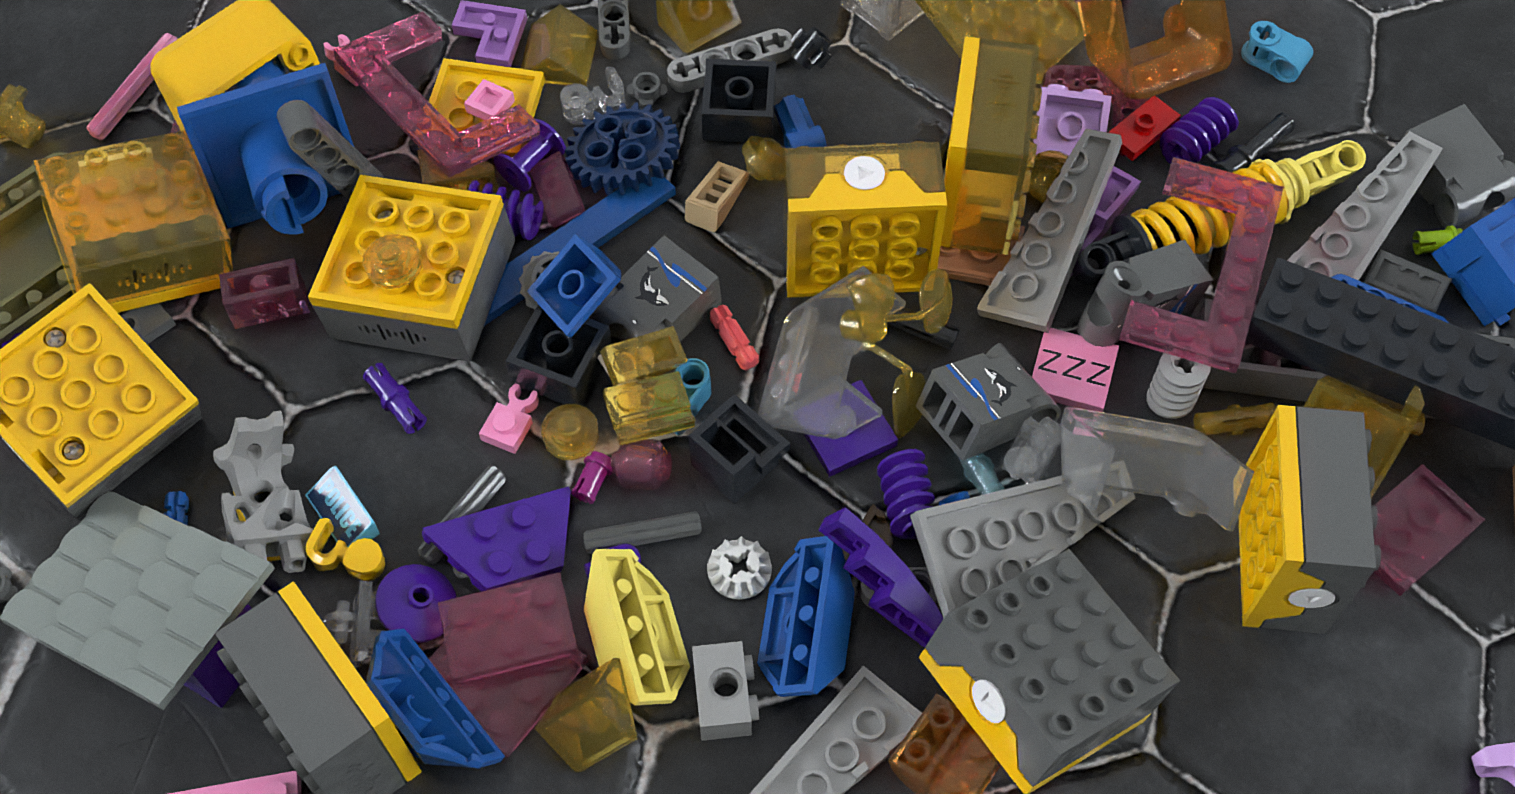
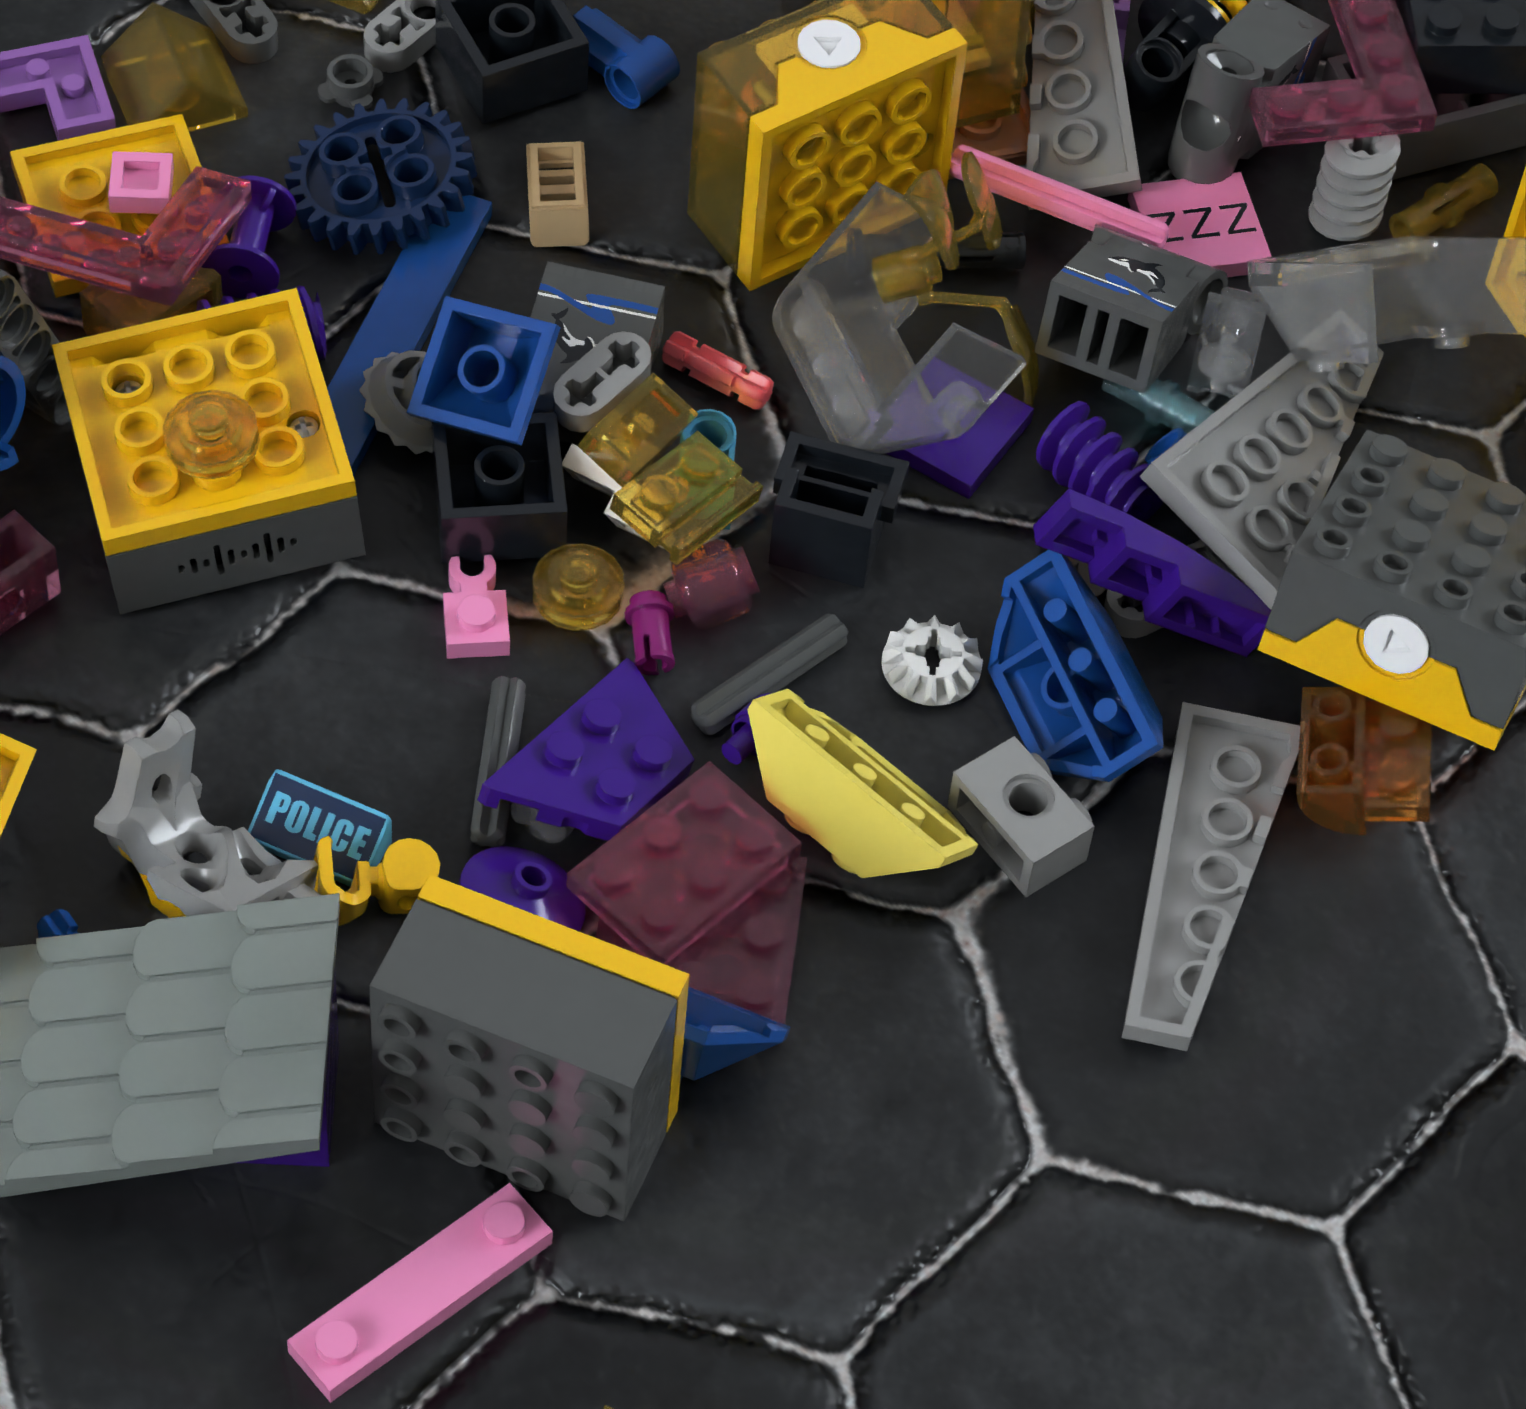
camera: 35 degrees left, 5 degrees down
(394, 398) = (286, 650): dark purple pin -> none
(557, 189) = (323, 268): clear pink plate -> none
(580, 103) = (266, 135): clear leg -> none
(590, 718) = (879, 919): clear yellow slope -> none
(645, 316) = (596, 374): none -> light grey beam
(764, 158) = (601, 112): clear yellow plate -> none
(993, 320) = (1061, 199): none -> bright pink axle

